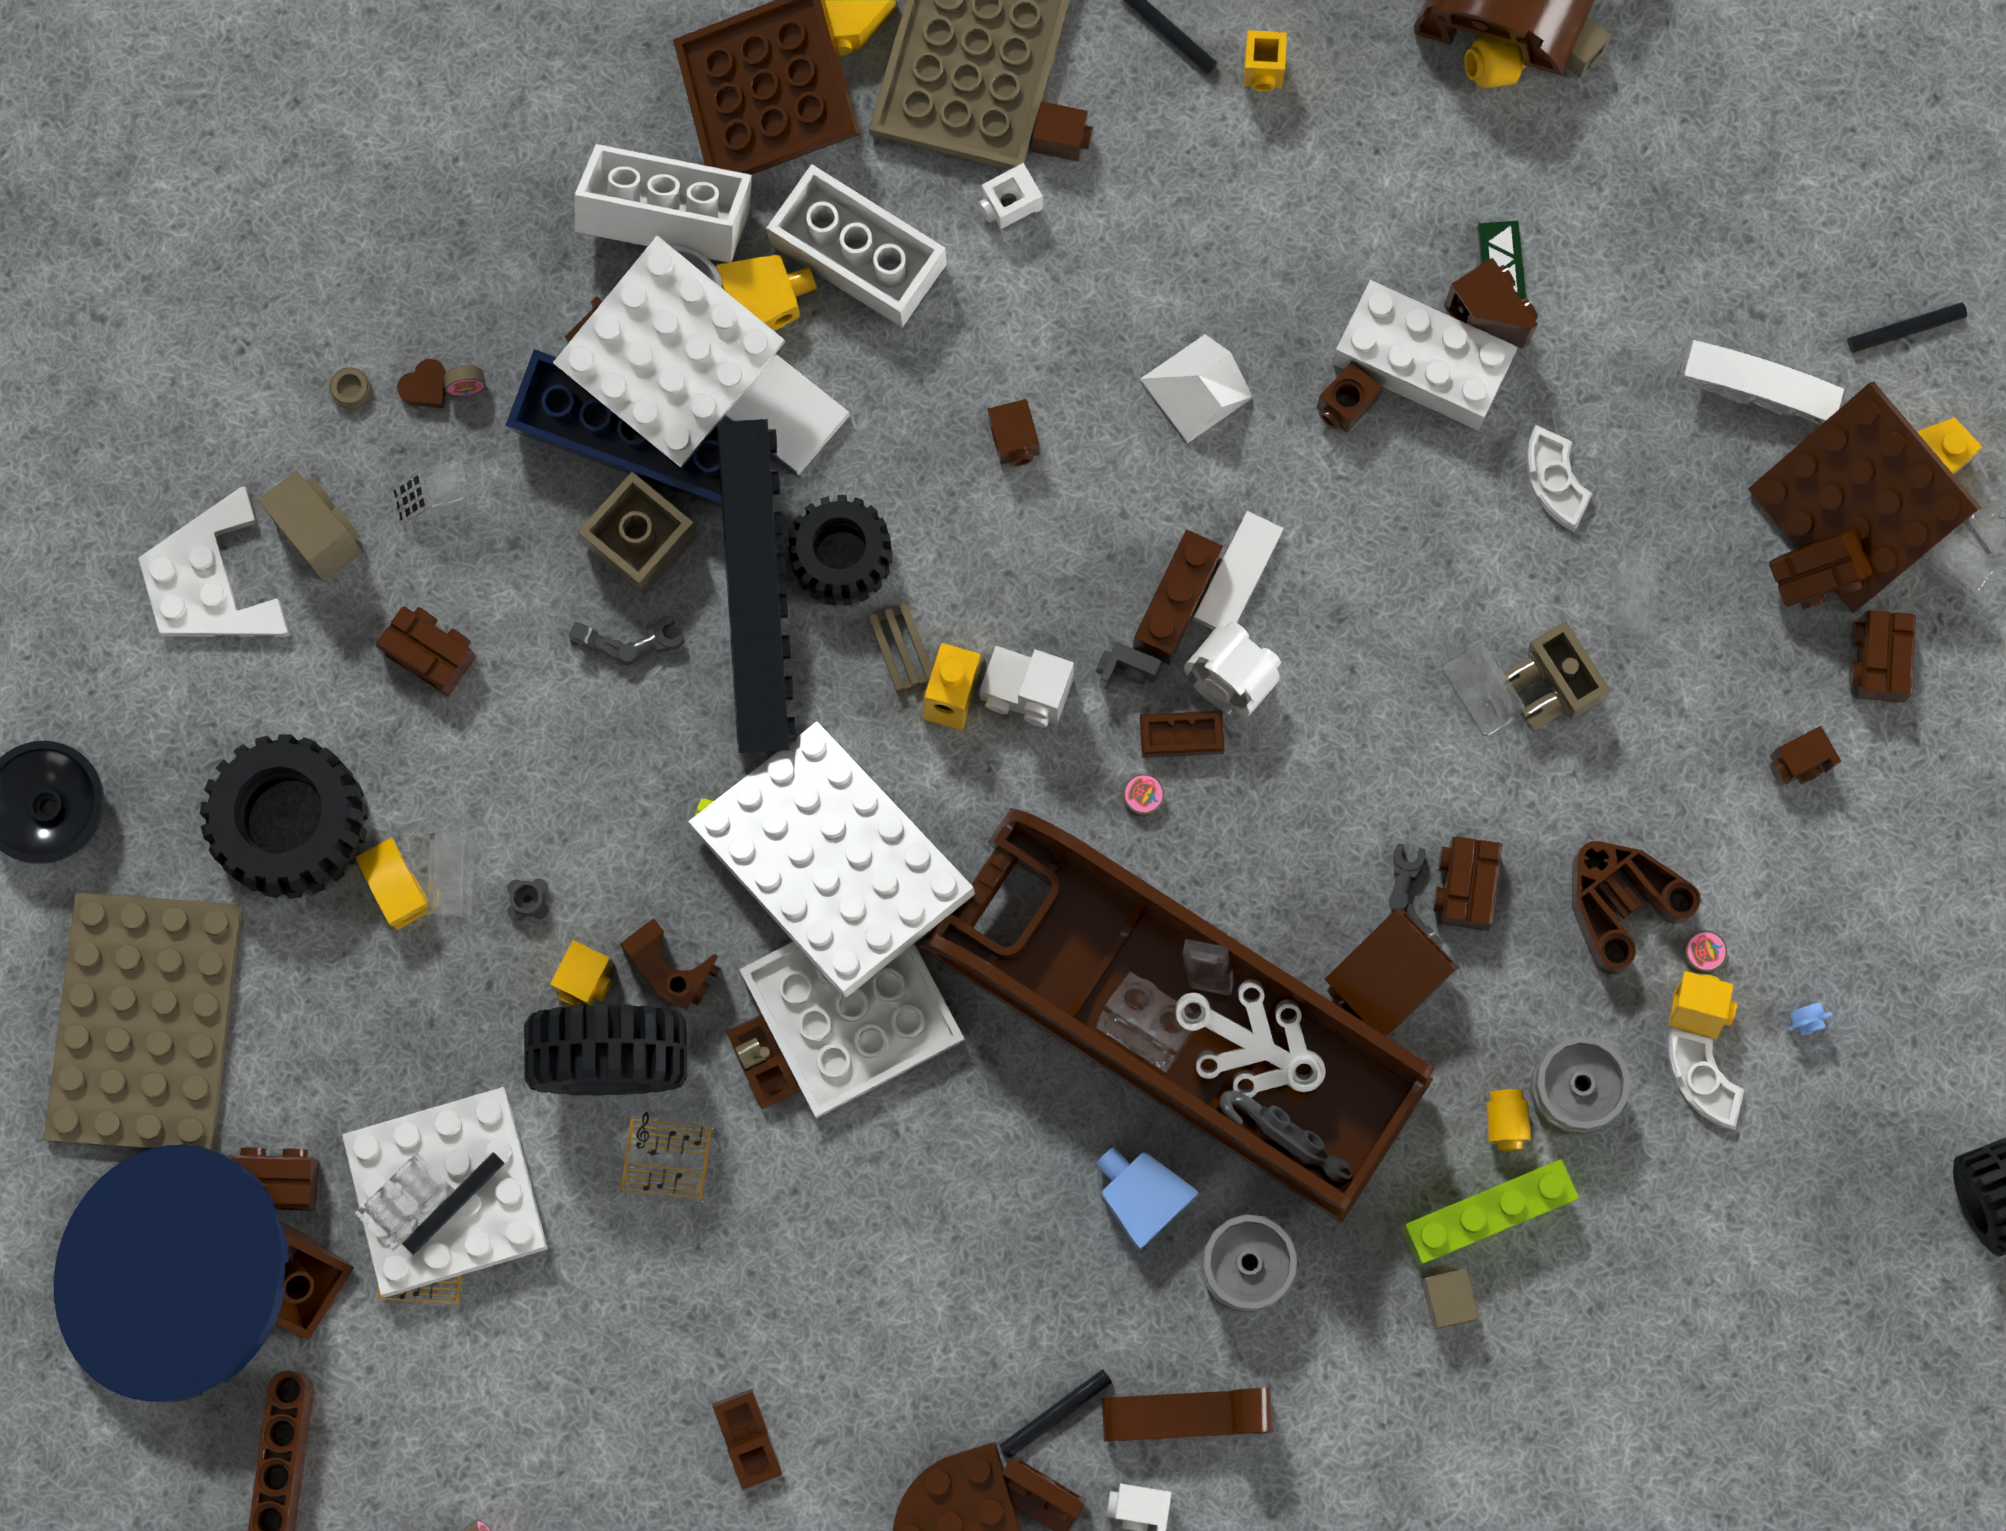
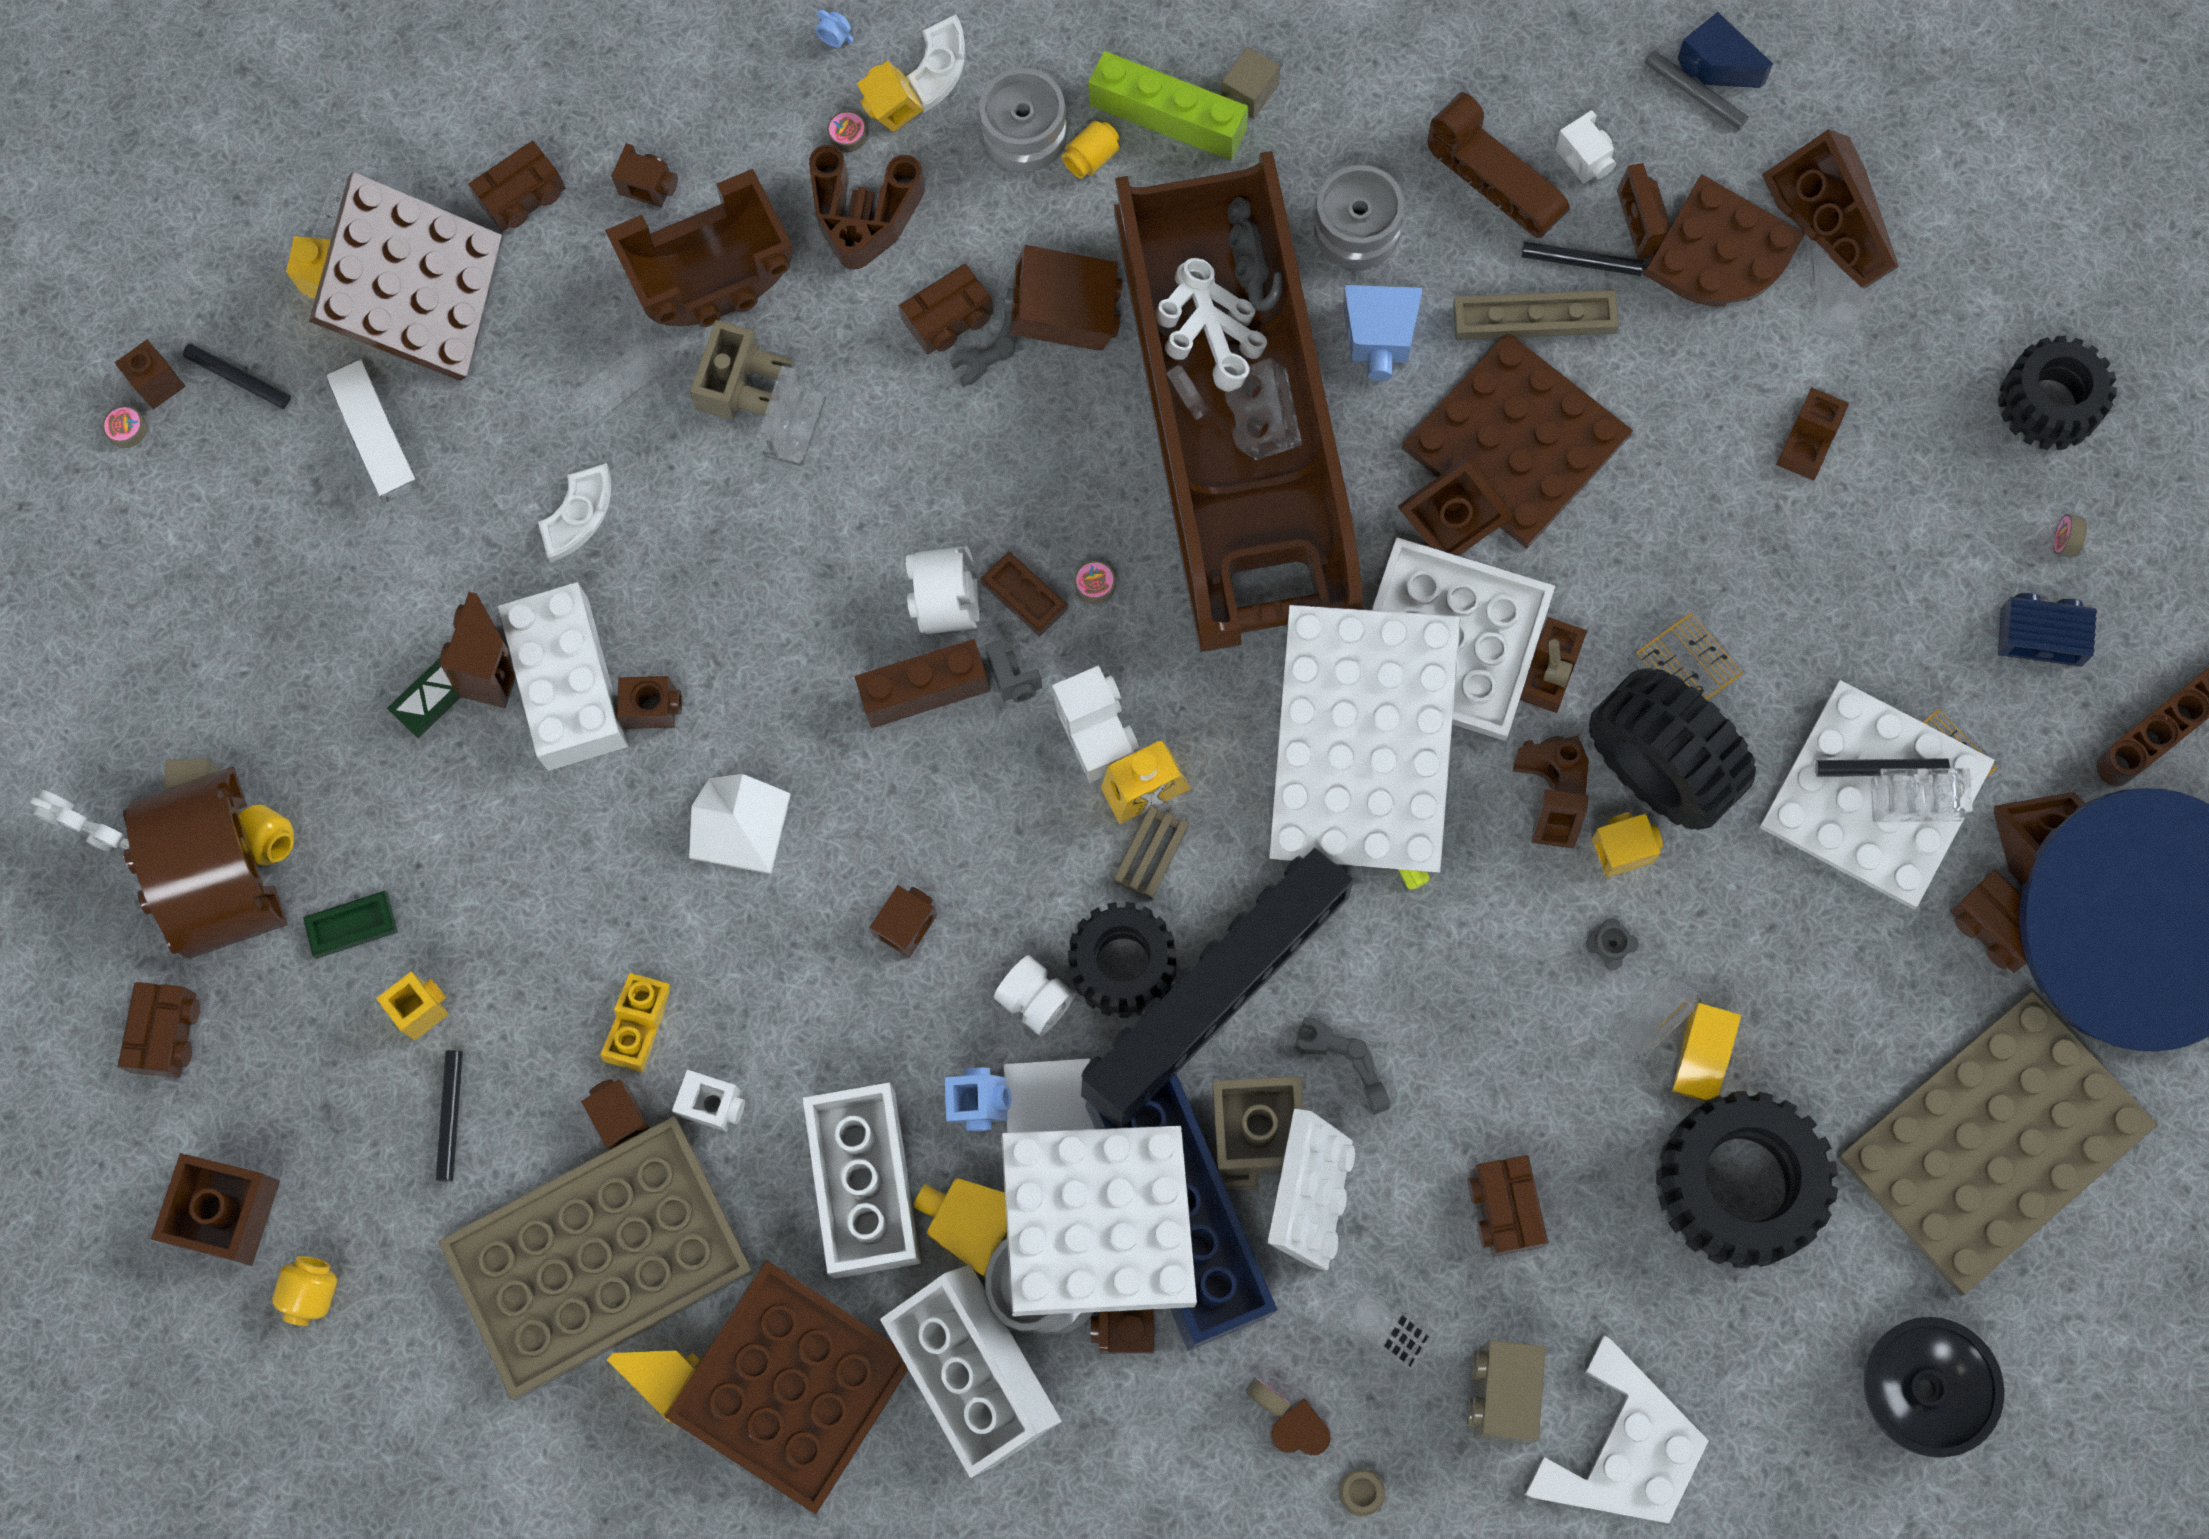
camera: 130 degrees left, 5 degrees down
(433, 1444) = (2047, 630): none -> dark blue brick
(557, 516) = (1311, 1190): none -> white plate
(838, 366) = (977, 1099): none -> light blue brick
(873, 470) = (1030, 992): none -> white wheel
(939, 1099) = (1456, 509): none -> reddish brown slope
(958, 1212) = (1526, 432): none -> reddish brown plate
(1042, 1325) = (1536, 314): none -> dark tan plate
(1116, 200) = (636, 1022): none -> yellow slope
(1238, 572) = (835, 670): white tile -> none
(1372, 72) = (350, 924): none -> dark green tile
(1681, 727) = (706, 261): none -> reddish brown cylinder
(1821, 568) = (489, 266): reddish brown brick -> none
(1936, 216) = (124, 426): none -> tile
(1960, 261) = (150, 374): none -> reddish brown brick

